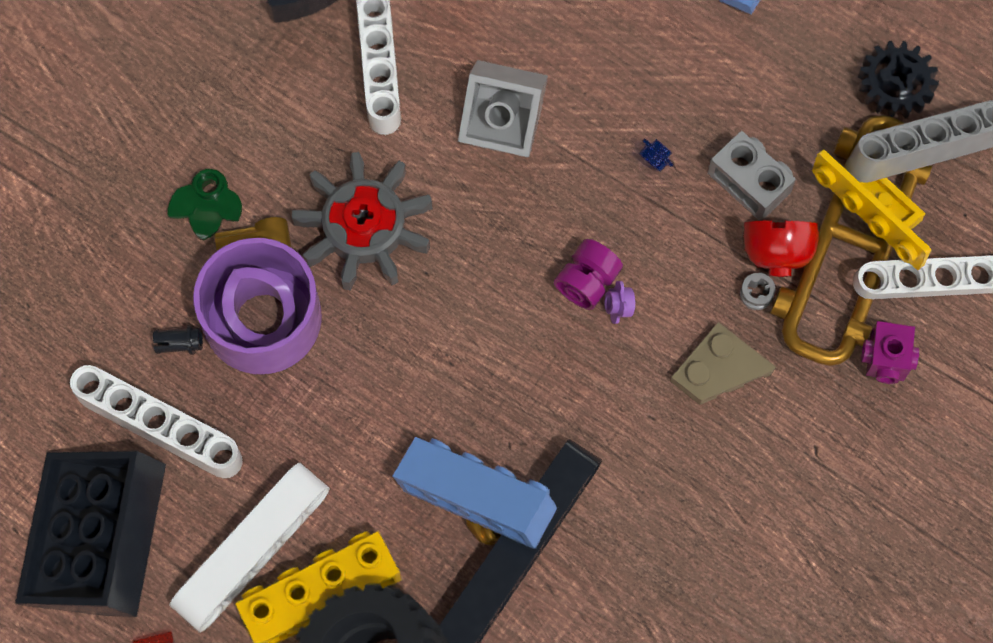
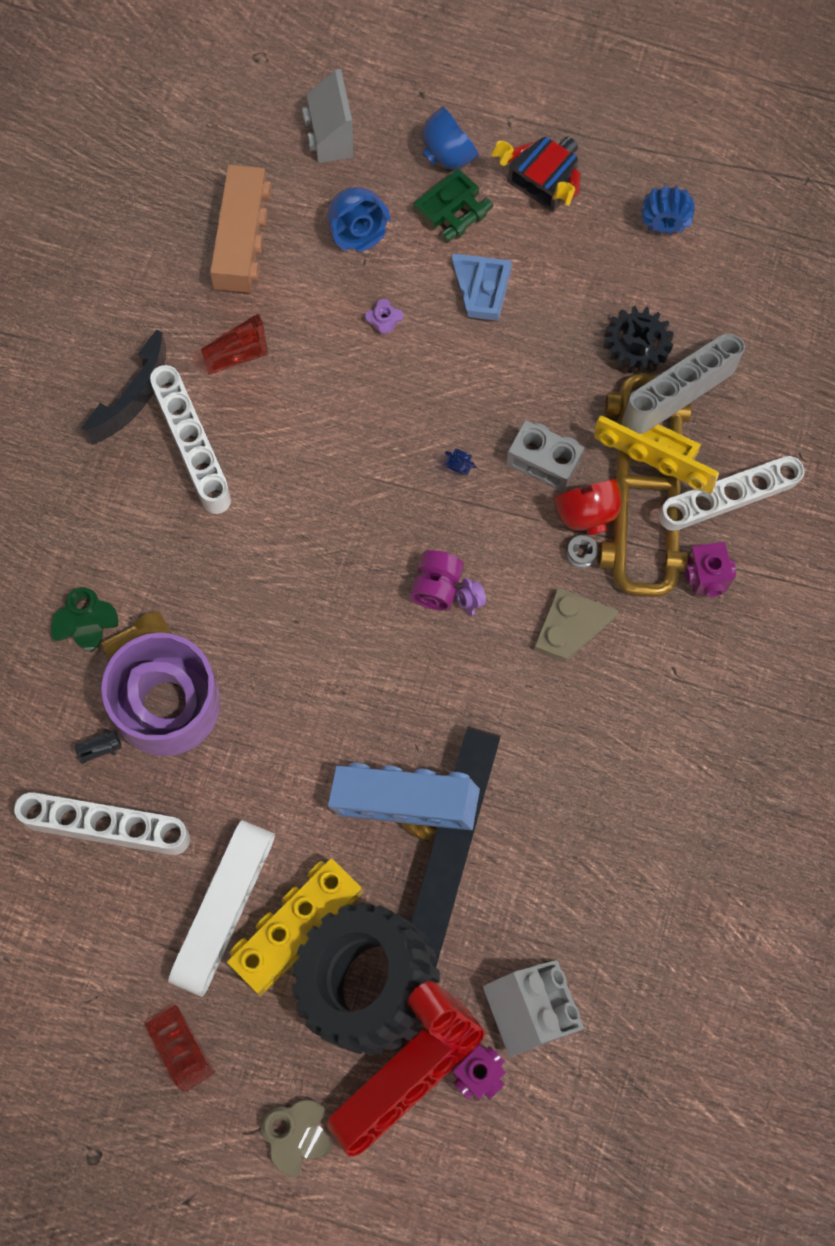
camera: 20 degrees left, 0 degrees up
(91, 532) = (76, 940): black slope -> none
(345, 211) = (209, 588): dark grey gear -> none
(502, 108) = (315, 460): light grey slope -> none

